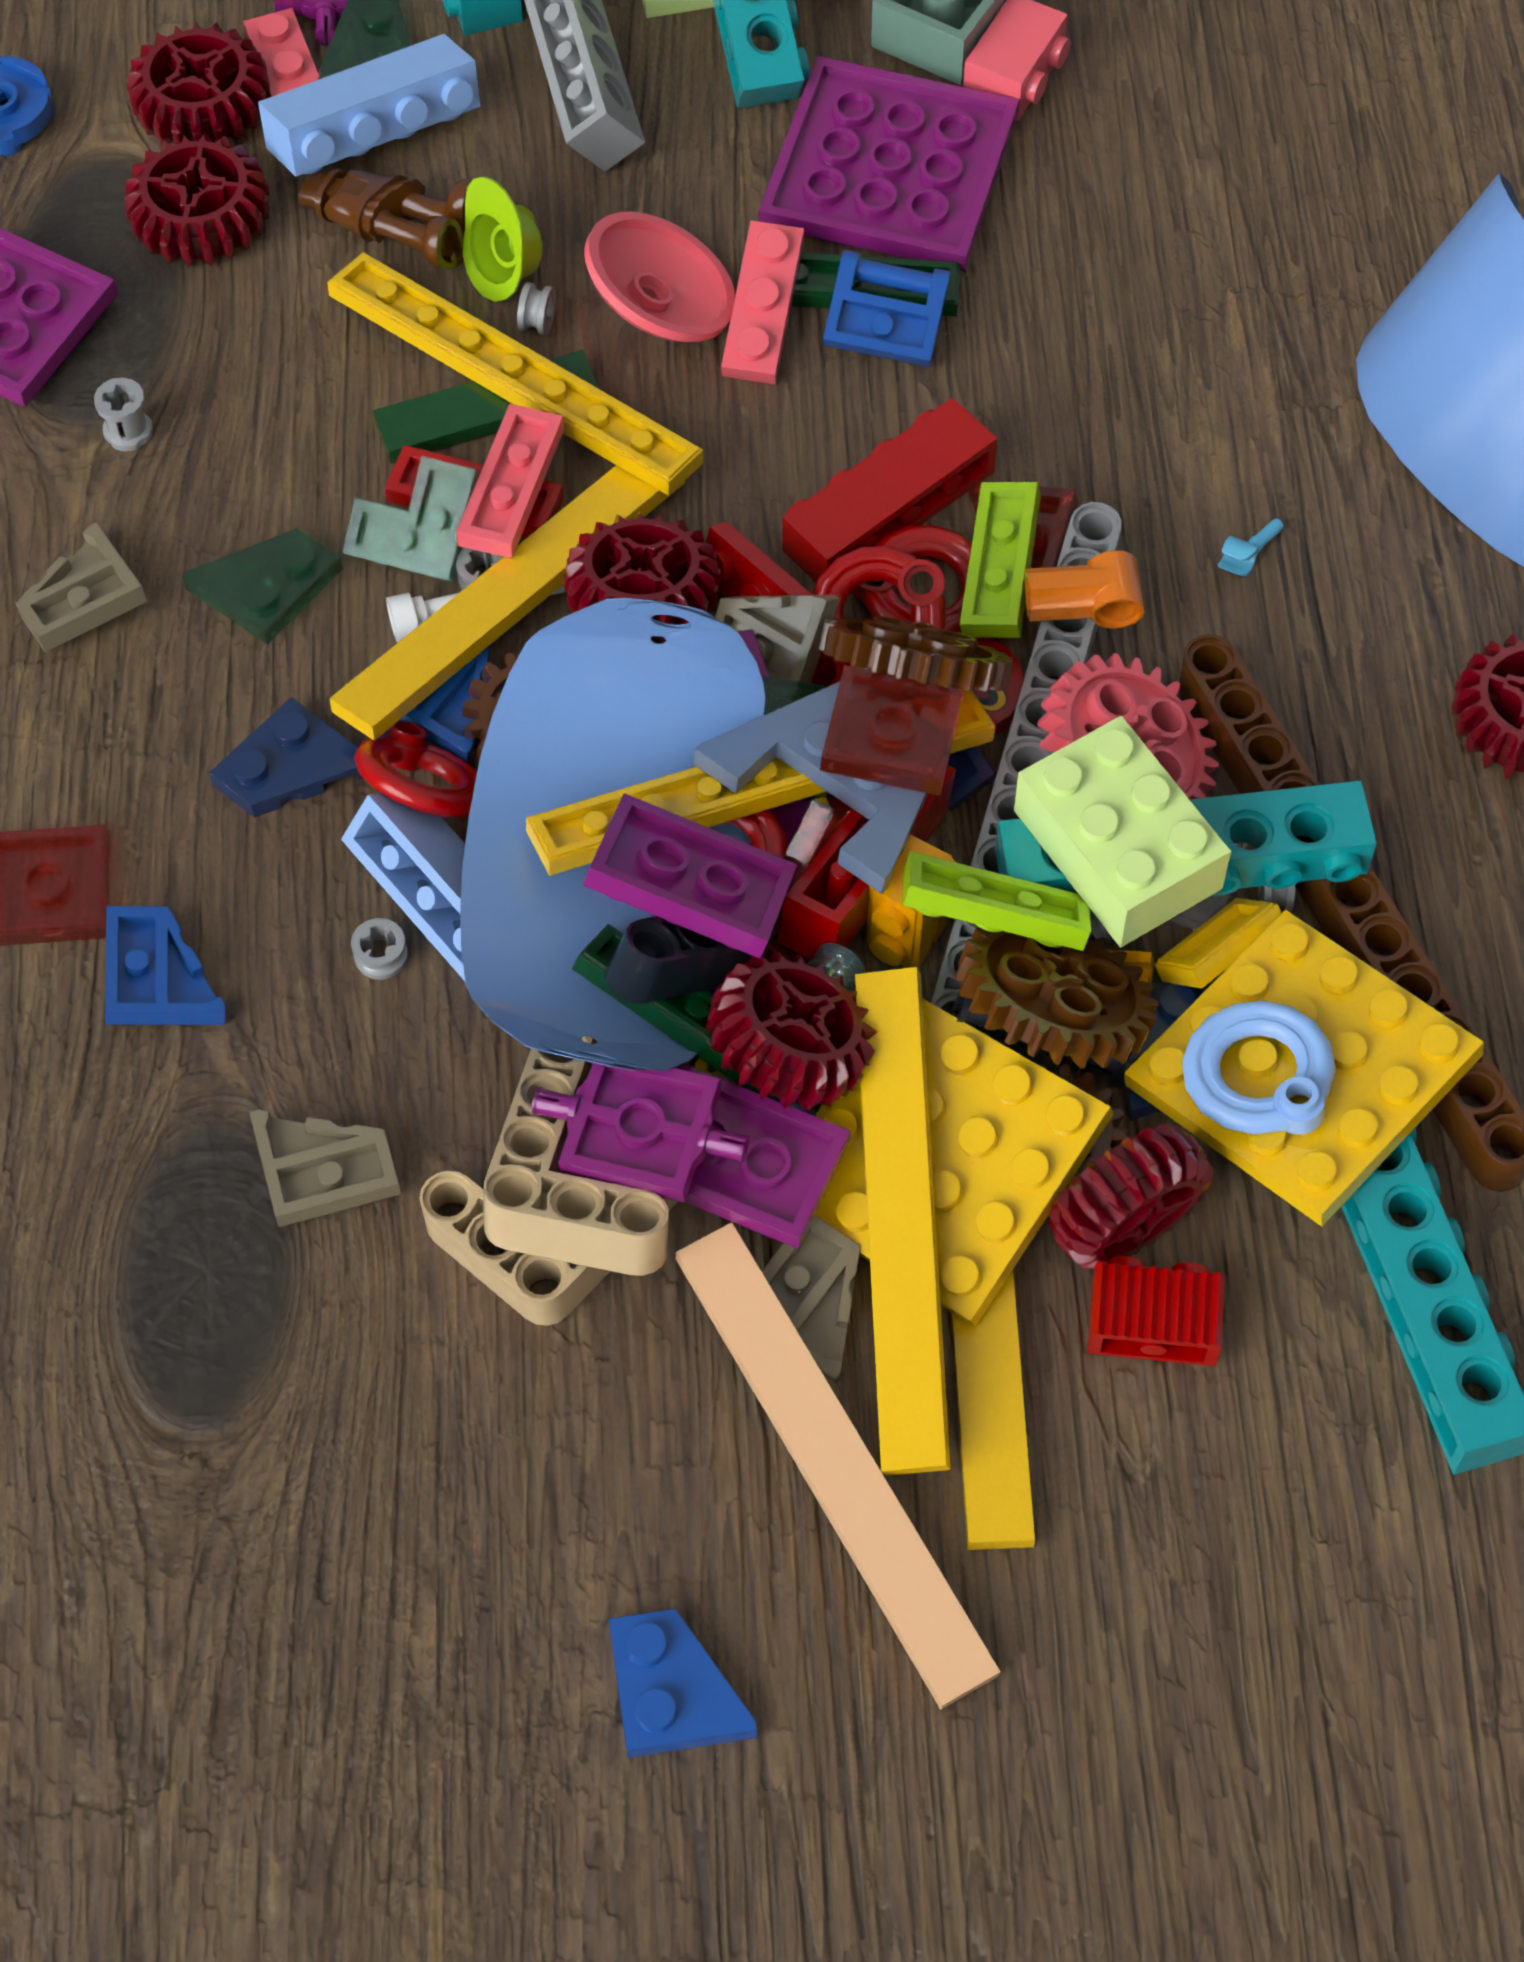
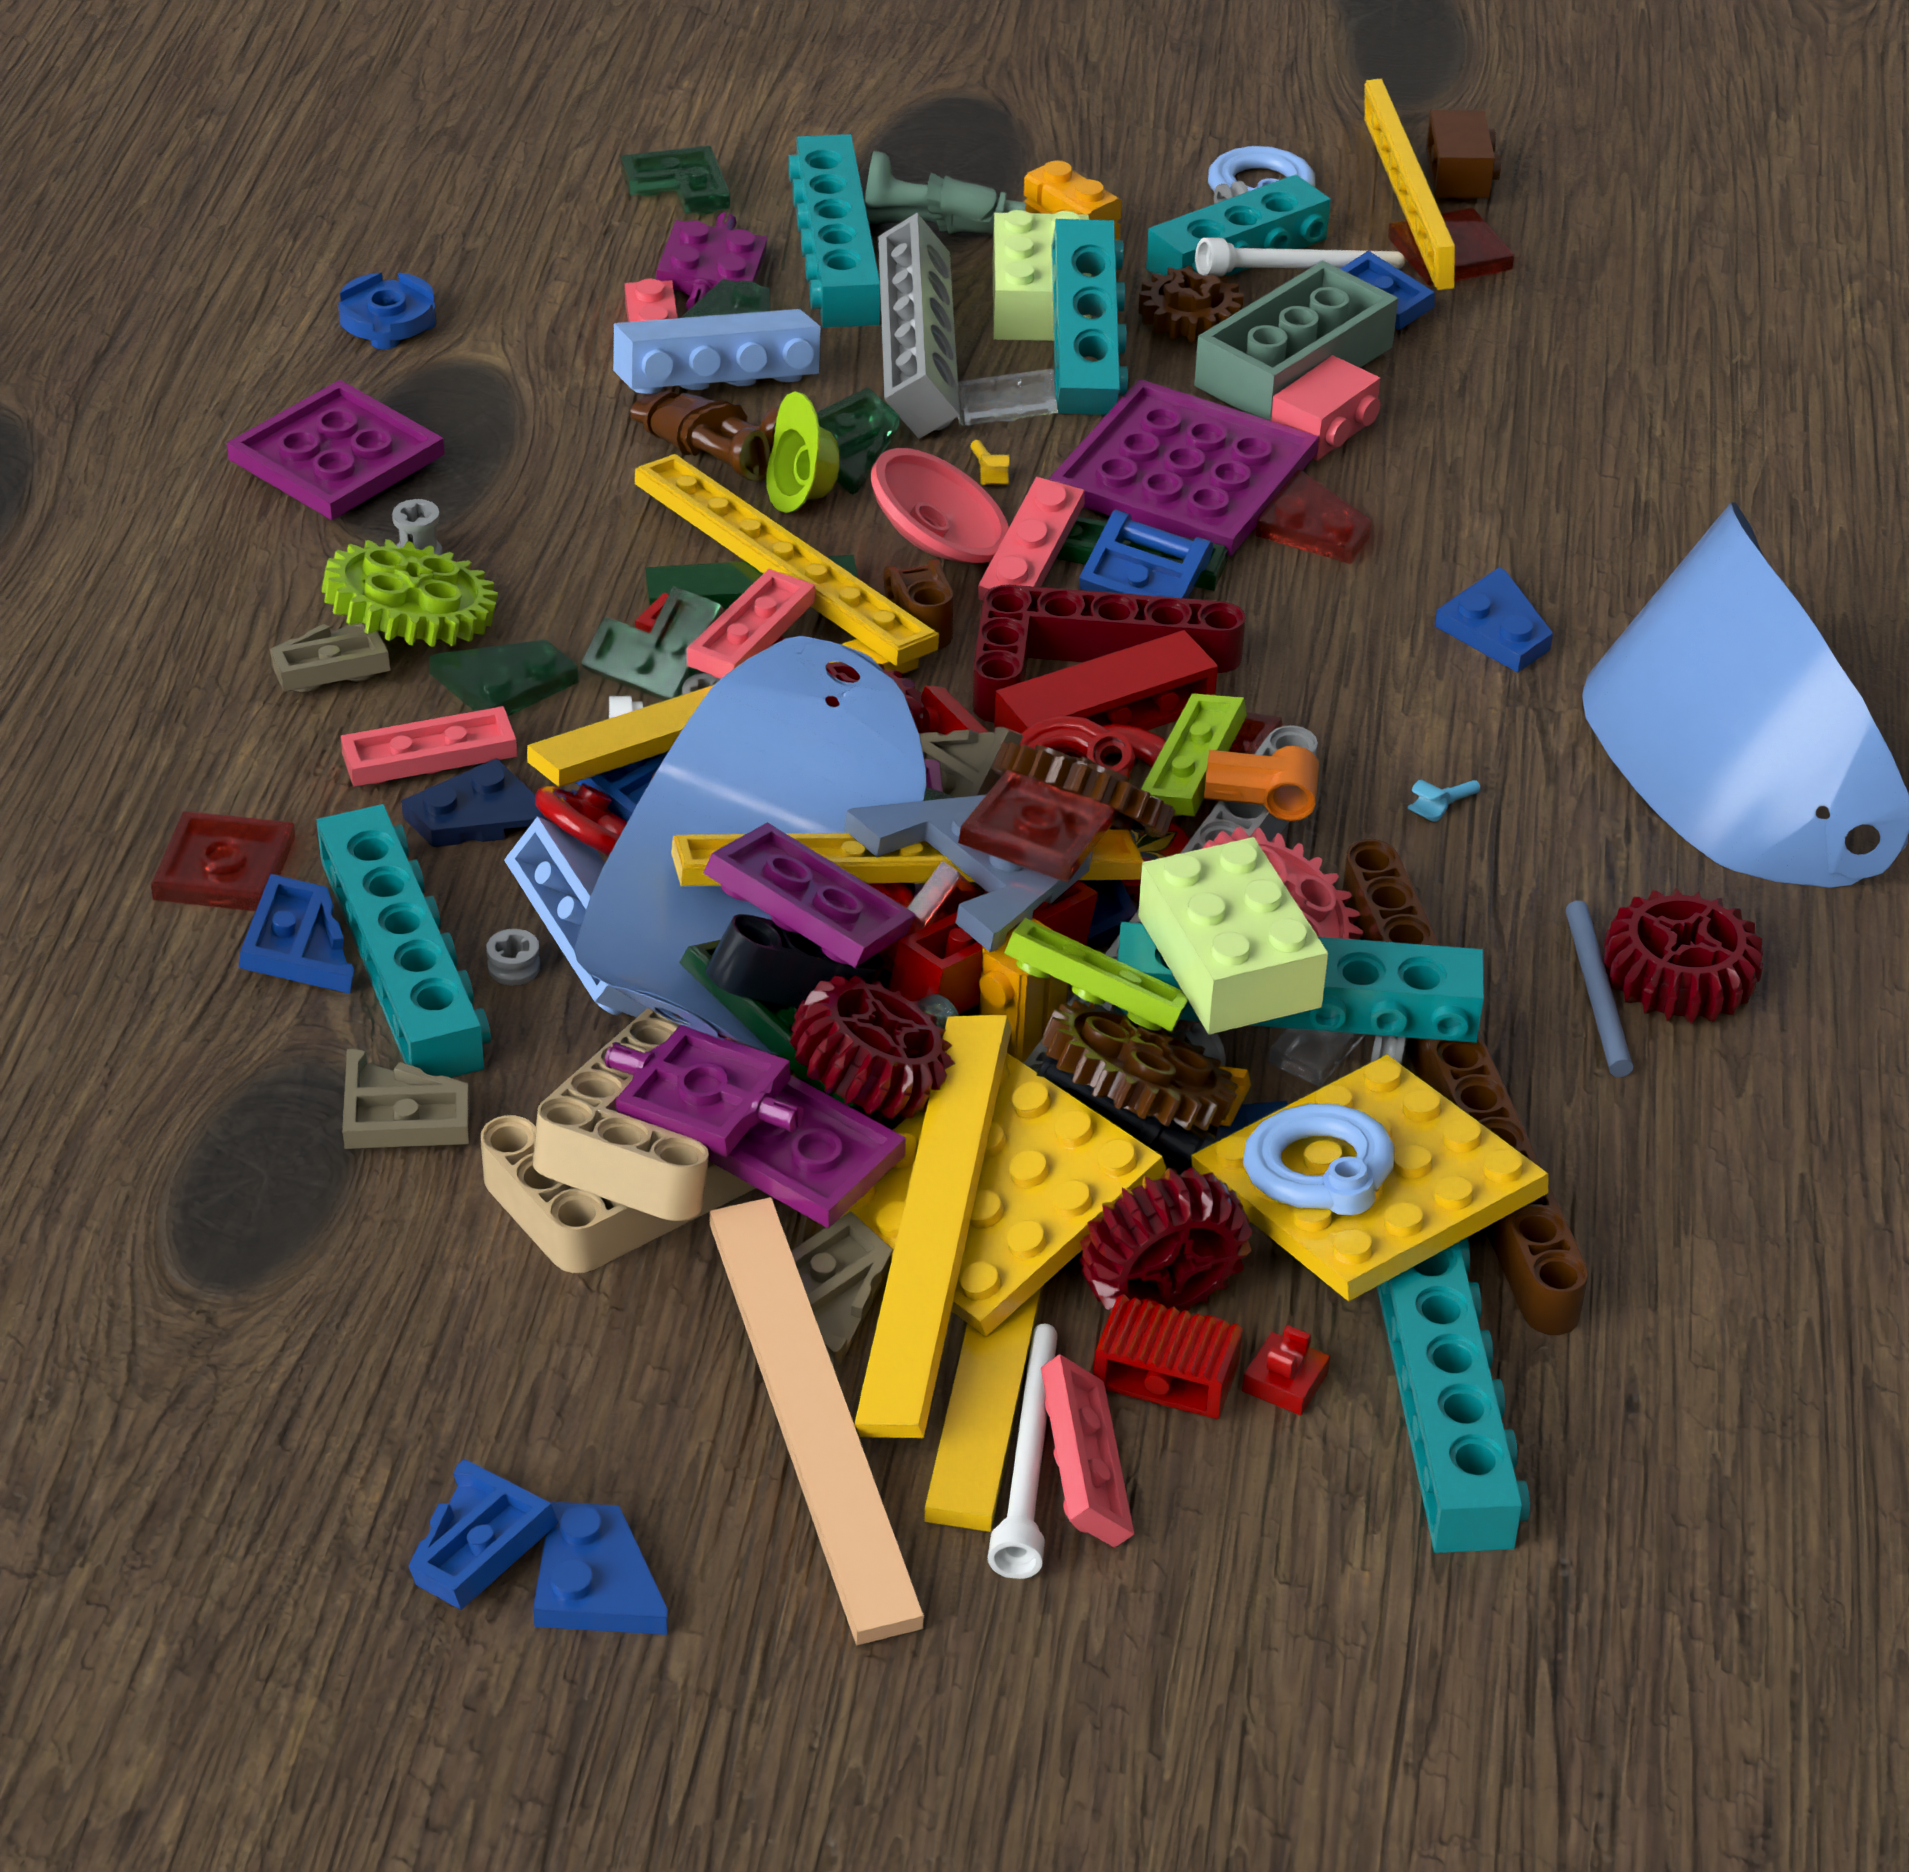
camera: 10 degrees right, 20 degrees down
(140, 500) = (409, 592): none -> lime gear
(197, 199) = (538, 396): dark red gear -> none
(198, 85) = (565, 319): dark red gear -> none
(216, 695) = (428, 746): none -> coral plate
(329, 1081) = (402, 944): none -> teal brick
(536, 308) = (820, 518): light grey bush -> none
(543, 180) = (862, 431): none -> clear green wing
(548, 1675) = (478, 1535): none -> blue wing
(669, 396) = (924, 595): none -> reddish brown piece
(686, 103) = (1007, 397): none -> clear plate
(693, 201) = (992, 467): none -> yellow hand
(848, 403) = (1087, 625): none -> dark red beam
(1037, 206) = (1314, 520): none -> clear red wing
(1066, 1564) = (1016, 1542): none -> white piece
(1106, 1443) = (1086, 1452): none -> coral plate
(1216, 943) = (1311, 1075): yellow tile -> none
(1251, 304) = (1497, 621): none -> blue wing
(1268, 1298) = (1286, 1370): none -> red tile
(1456, 759) = (1599, 989): none -> sand blue bar

